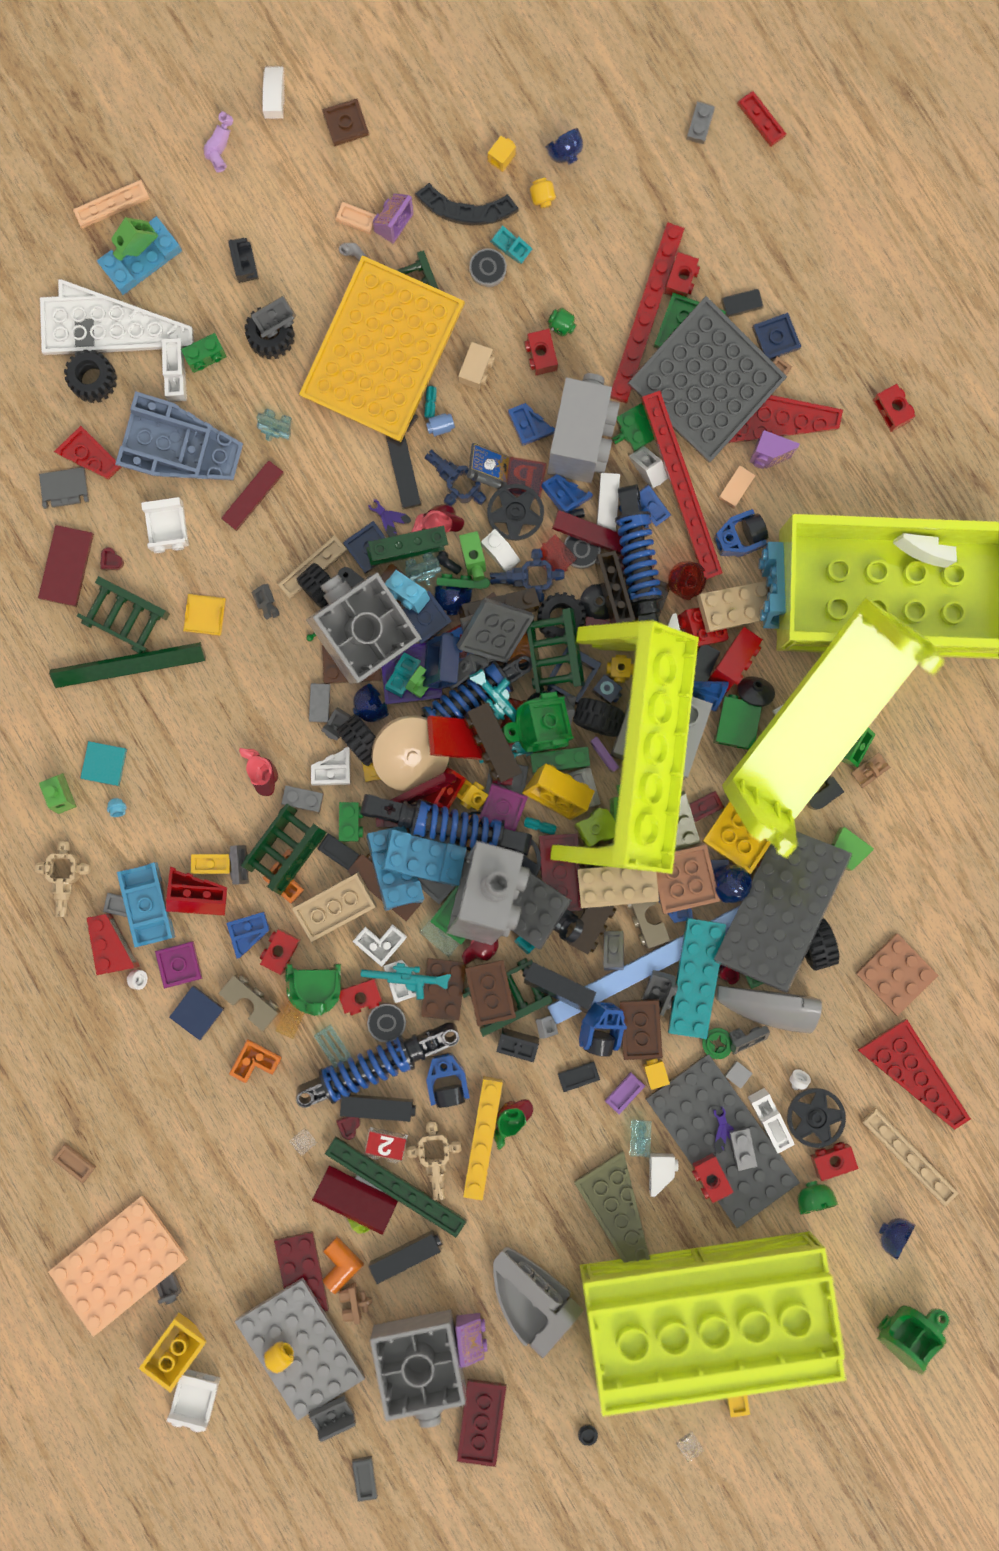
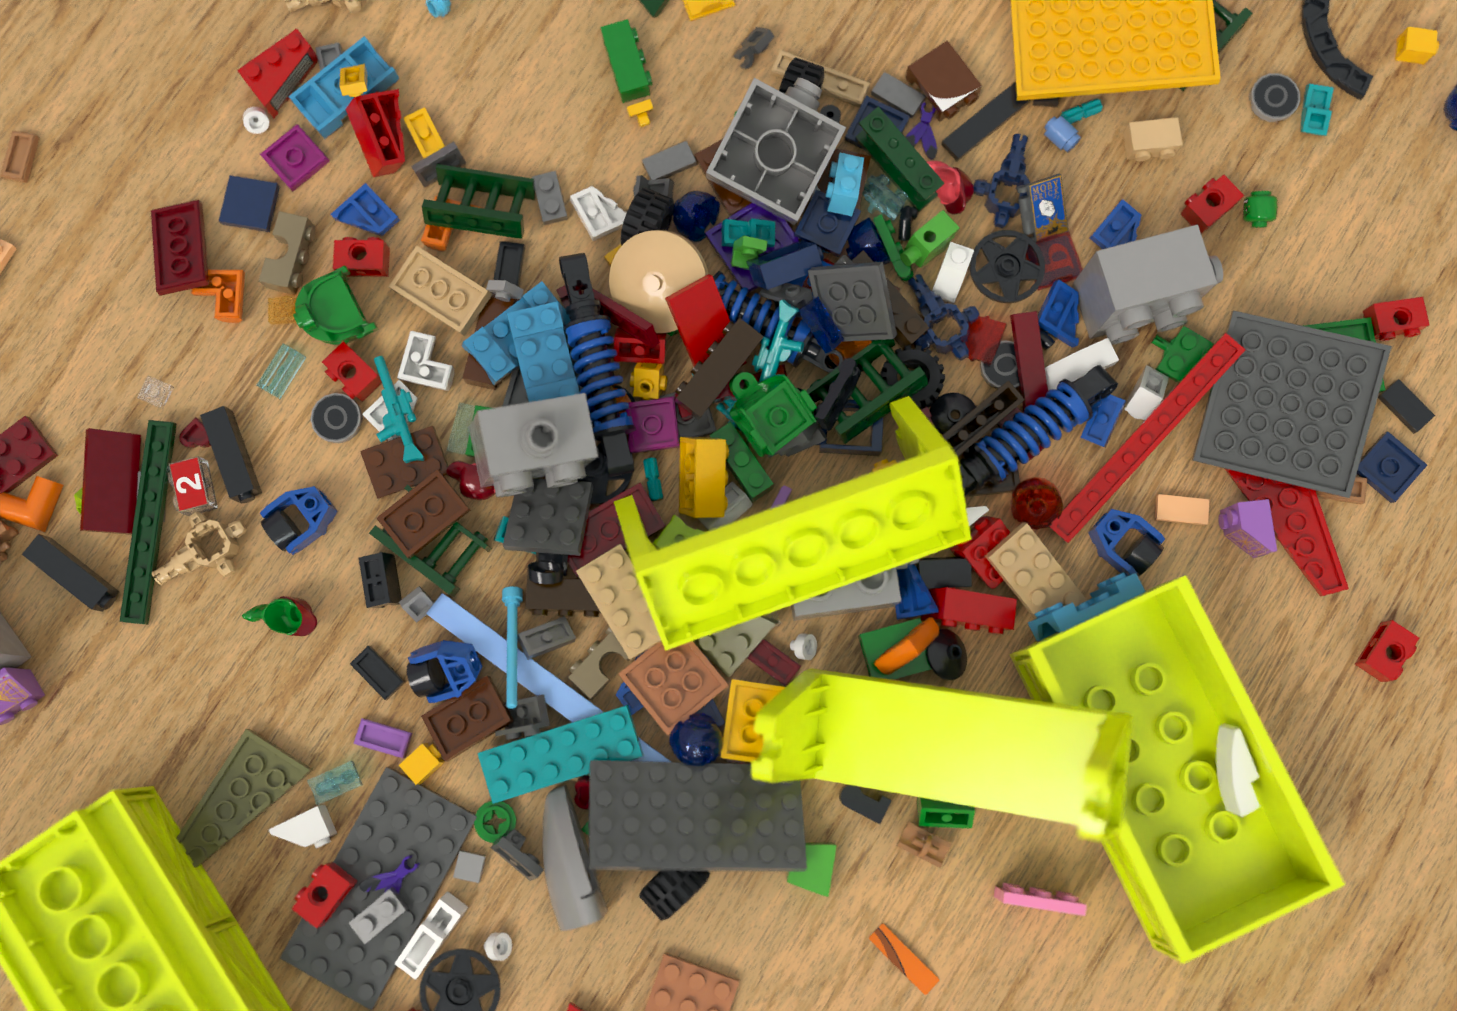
camera: 70 degrees right, 5 degrees down
(152, 894) = (353, 80): none -> yellow plate
(206, 1076) = (179, 247): none -> dark red tile
(230, 695) = (626, 60): none -> green brick
(260, 771) = (557, 133): coral hair -> none
(272, 704) = (640, 110): none -> yellow tile
(350, 822) = (543, 261): green brick -> none
(353, 520) = (898, 95): none -> flat silver tile
(361, 483) = (944, 80): none -> reddish brown panel
(362, 863) = (504, 290): none -> light grey plate
(369, 1069) = (277, 427): piece -> none
(482, 1138) = (218, 602): yellow arch -> none
(498, 659) = (821, 325): none -> clear blue plate
(533, 1301) = (80, 747): light grey panel -> none
(542, 192) = (1398, 112): yellow head -> none
(552, 672) = (838, 394): none -> black hinge
(559, 987) = (468, 591): black brick -> none
(574, 960) = (512, 597): none -> medium azure piece
(598, 717) = (813, 470): black tyre -> none
(607, 690) = (854, 468): dark blue brick -> none
(647, 311) = (1333, 300): red plate -> none
(704, 782) = (804, 646): none -> white tile
(744, 714) = (909, 647): none -> orange brick
(934, 820) = (904, 959): none -> orange sticker
(941, 714) = (1040, 899): none -> bright pink plate

